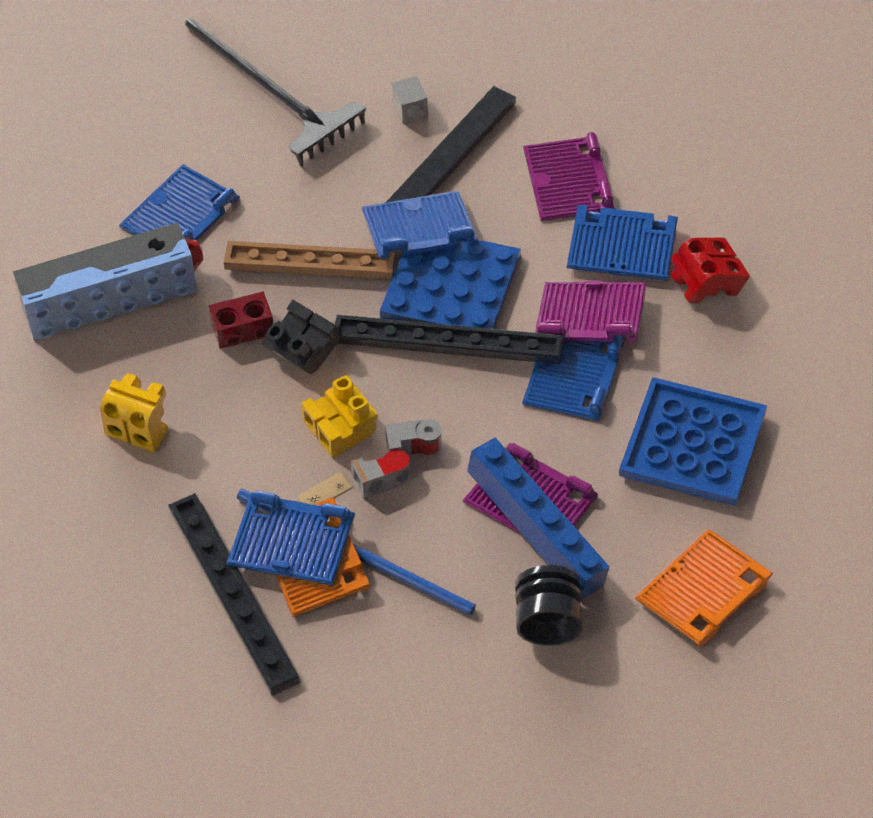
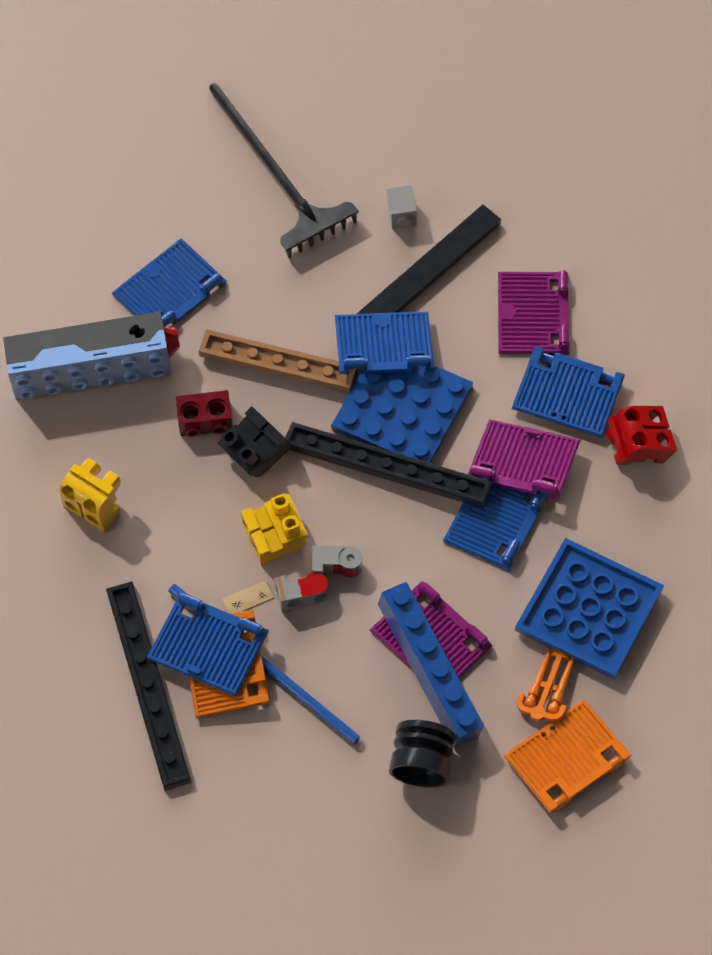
camera: 10 degrees right, 10 degrees up
(679, 545) = (555, 712): none -> orange piece

